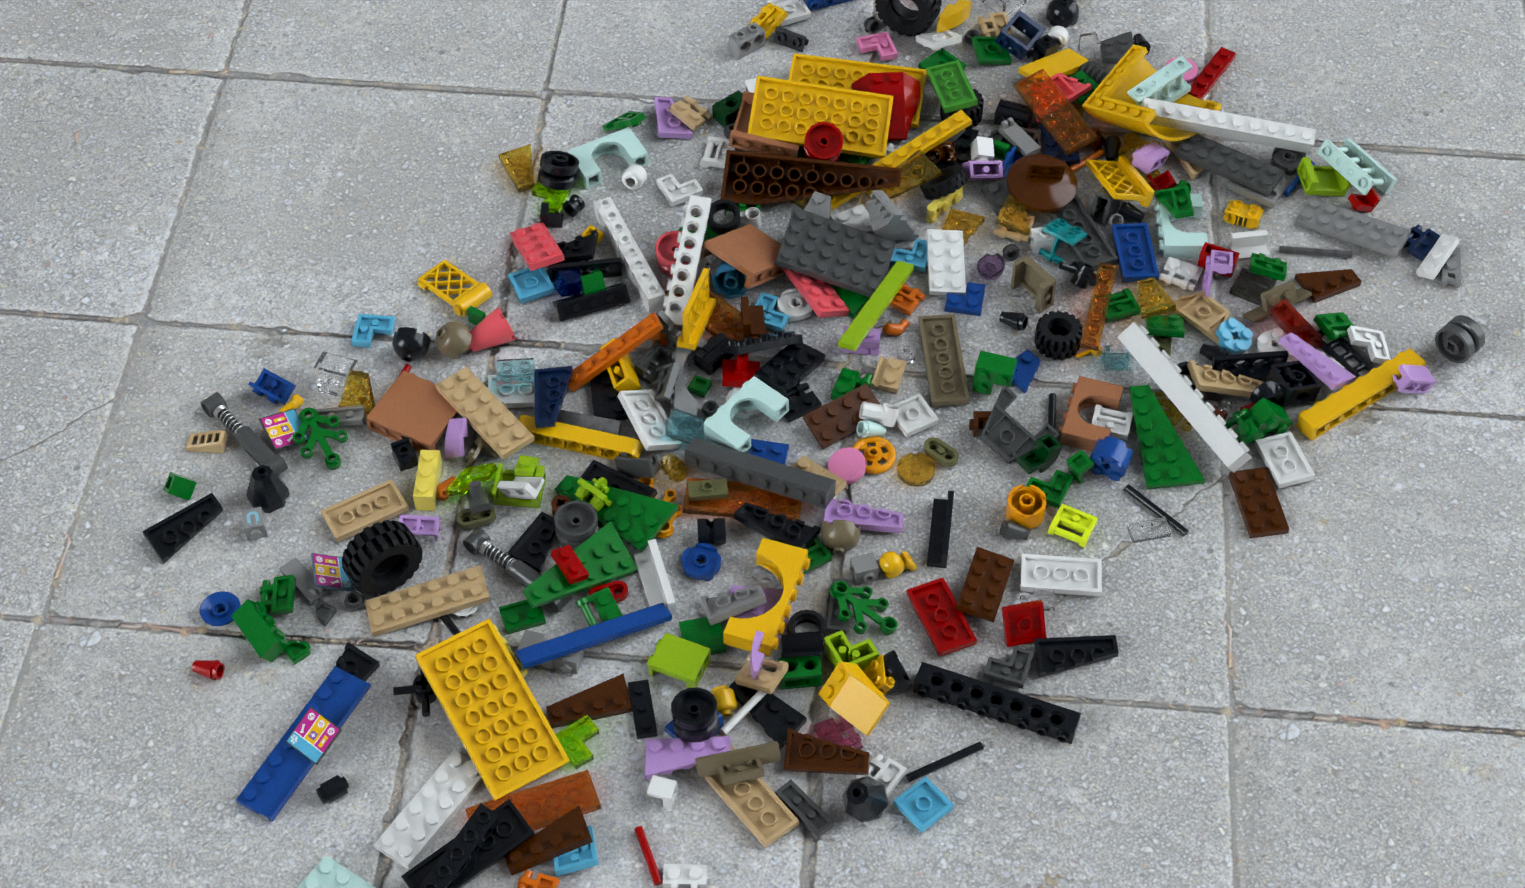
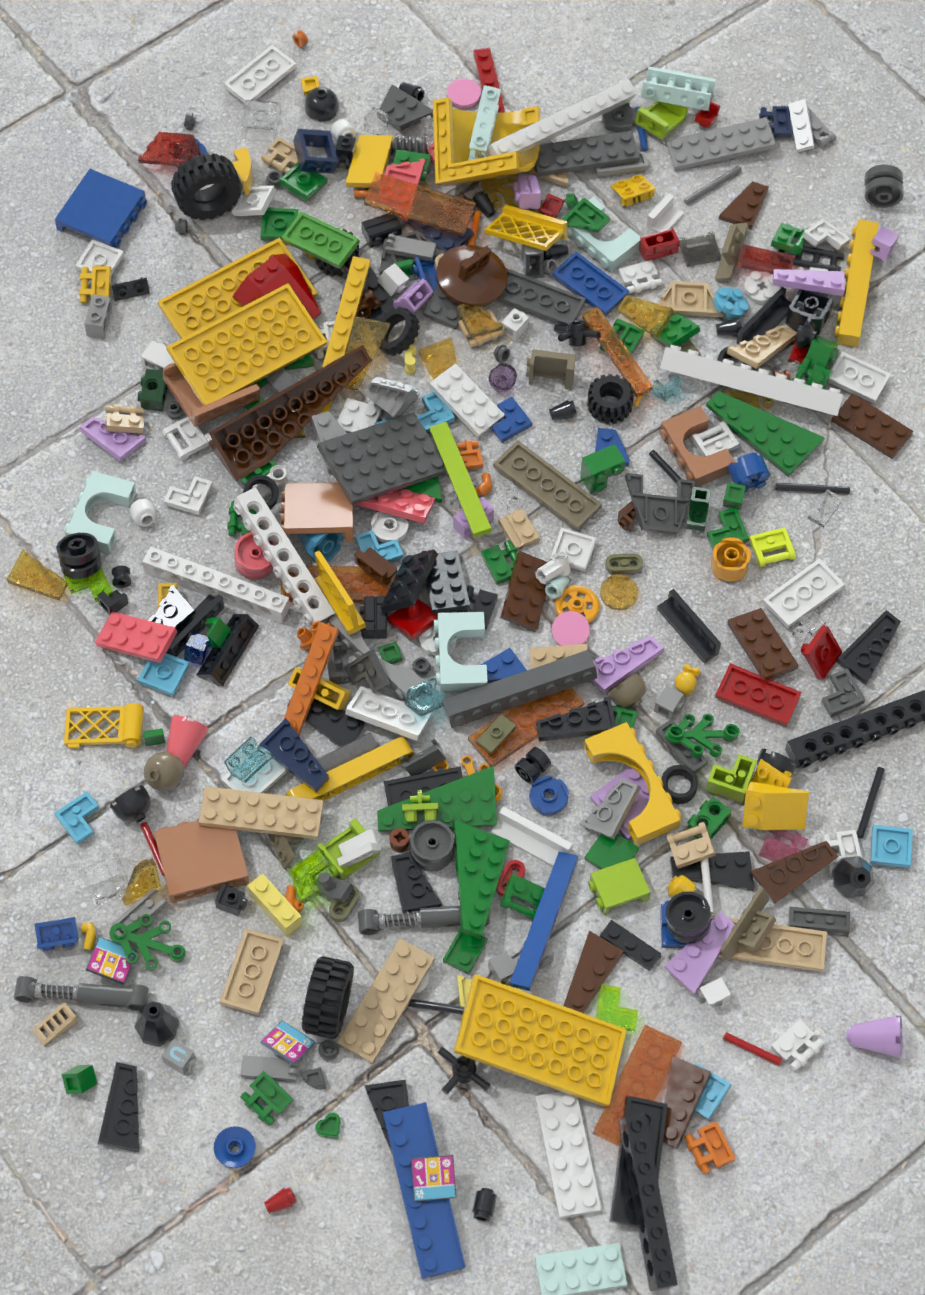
camera: 45 degrees left, 10 degrees up
(260, 630) = (288, 1135): green brick -> none
(422, 525) = (313, 948): lavender hinge -> none
(454, 436) = (258, 853): lavender slope -> none
(526, 466) = (341, 829): lime bracket -> none
(569, 564) = (472, 880): red plate -> none
(625, 120) = (80, 466): green wing -> none
(670, 464) = (449, 737): clear yellow gear -> none
(671, 331) = (340, 624): dark grey plate -> none
(756, 657) = (687, 839): lavender slope -> none
(802, 644) = (695, 799): black panel -> none
(828, 135) = (278, 368): red wheel -> none
(881, 42) = (208, 238): bright pink plate -> none
(1013, 530) = (736, 585): dark grey cone -> none
(1062, 232) = (530, 307): teal plate -> none
(1217, 261) = (670, 251): lavender bracket -> none
(1268, 266) = (696, 223): green plate -> none

